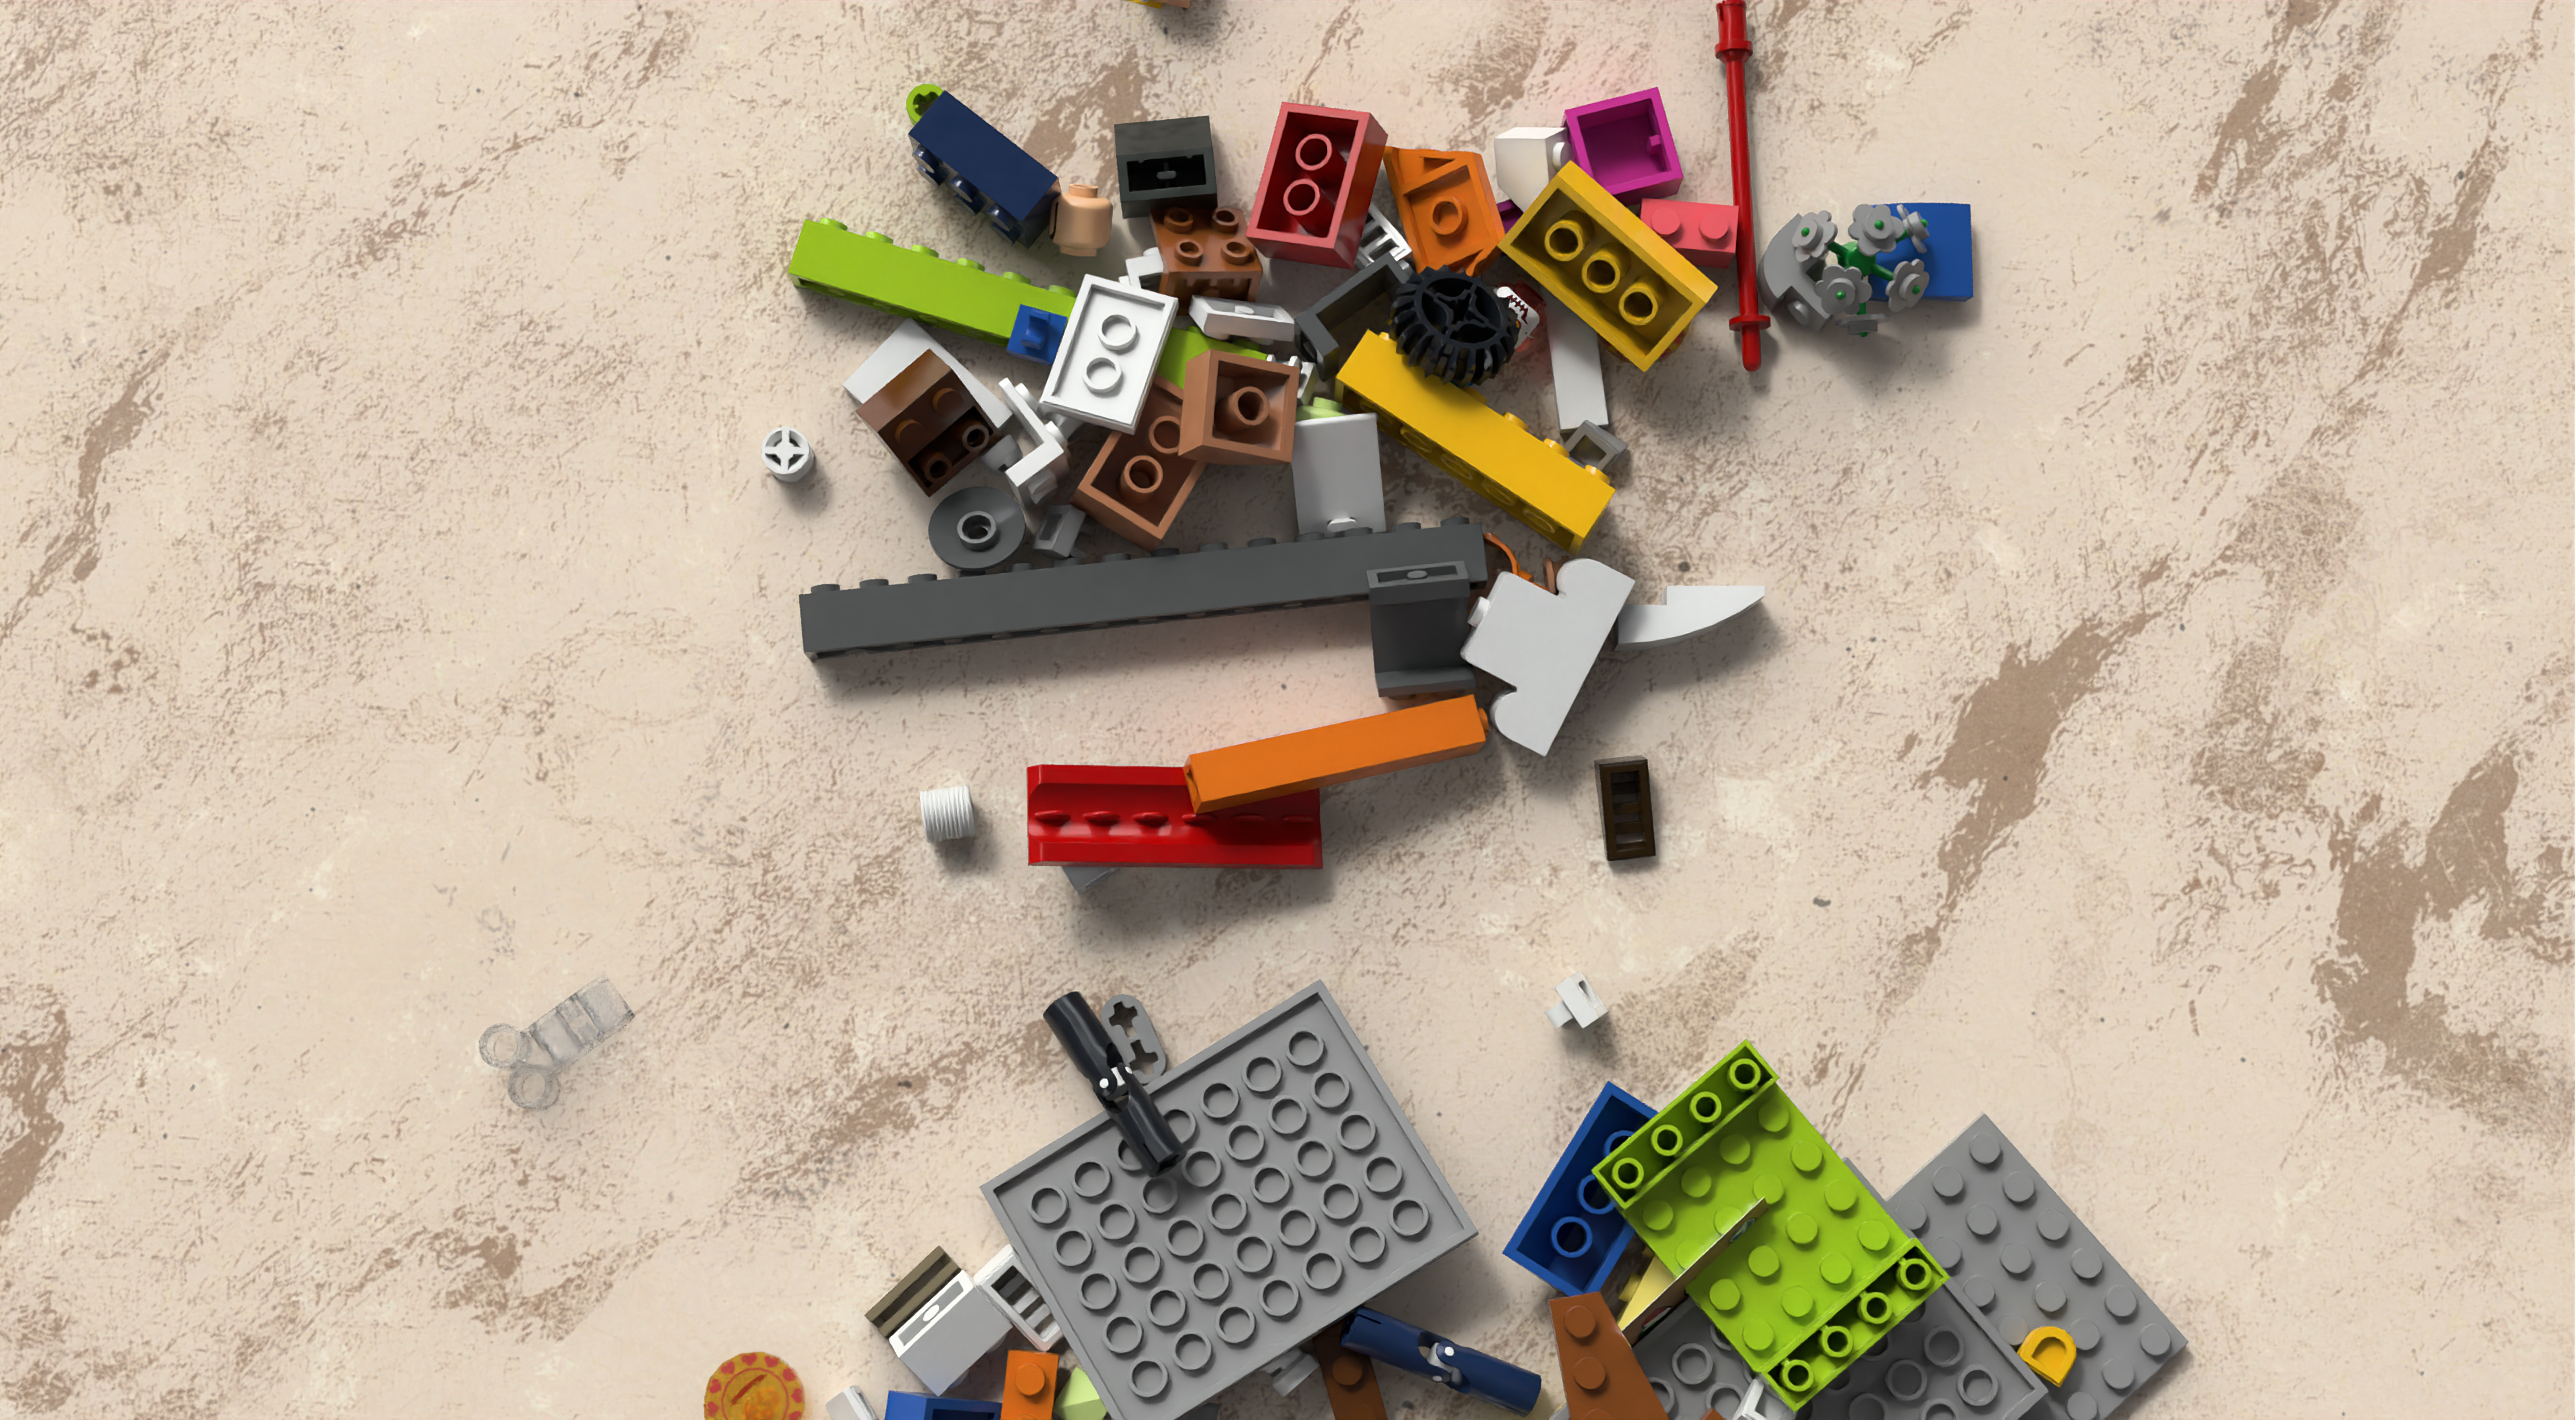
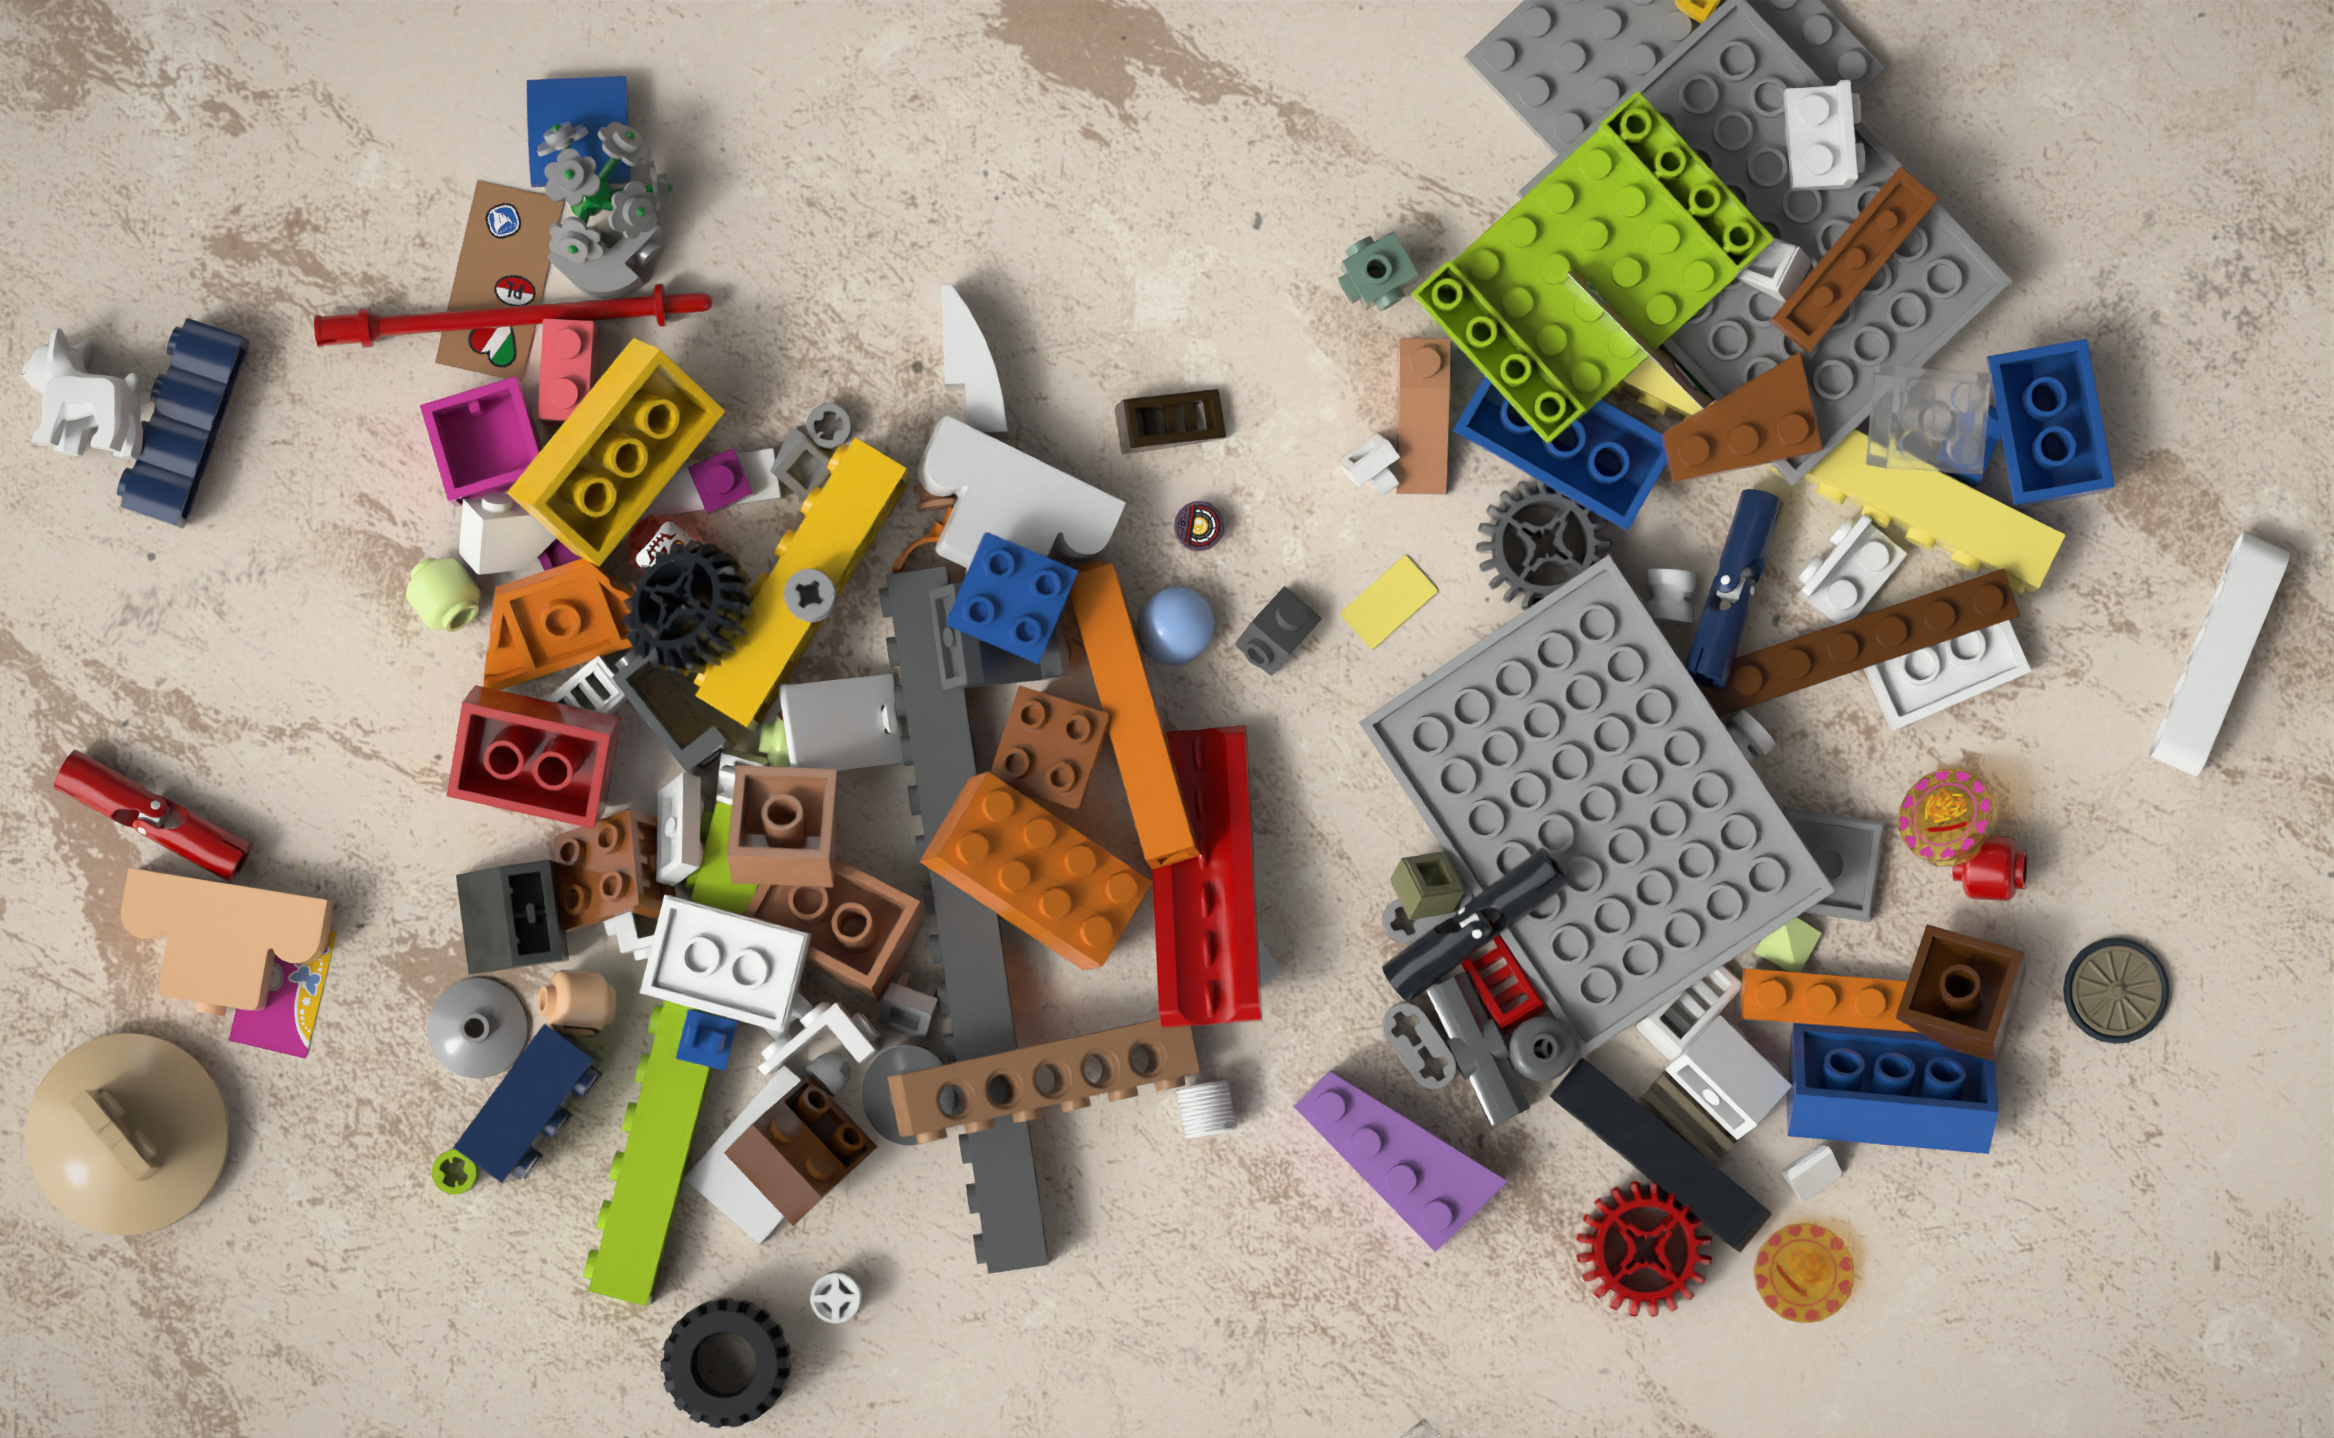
camera: 90 degrees left, 5 degrees up
(712, 313) = (694, 1394): none -> black tyre
(803, 1259) = (1674, 1279): none -> red gear
(877, 1262) = (1660, 1154): none -> black beam
(881, 1006) = (1407, 1166): none -> medium lavender wedge
(976, 527) = (919, 1092): none -> medium nougat brick
(992, 1016) = (1408, 1053): none -> light grey beam
(992, 1083) = (1478, 1049): none -> dark grey piece
(1004, 1154) = (1522, 1048): none -> dark grey head
(1024, 1127) = (1526, 1010): none -> red slope
(1069, 154) = (503, 1032): none -> light grey dish
(1156, 1038) = (1427, 885): none -> olive slope
(1185, 653) = (1035, 871): none -> orange brick
(1305, 671) = (1050, 747): none -> dark orange bracket
(1414, 903) = (1277, 631): none -> dark grey bracket
(1423, 804) = (1175, 626): none -> light blue hair
(1436, 1297) = (1670, 593): none -> white wheel
(1439, 1016) = (1388, 602): none -> light yellow sticker
(1453, 634) = (1011, 597): none -> blue bracket
(1456, 447) = (817, 600): none -> light grey wheel
(1476, 111) = (443, 594): none -> yellowish green head
(1516, 1135) = (1524, 532): none -> dark grey gear
(1520, 831) = (1198, 526): none -> tile
(1577, 372) = (720, 481): none -> magenta plate
(1624, 1055) = (1423, 415): none -> nougat slope
(1639, 469) = (818, 416): none -> light grey bush
(1785, 175) = (499, 266): none -> medium nougat sticker
(1785, 1008) = (1386, 256): none -> sand green brick

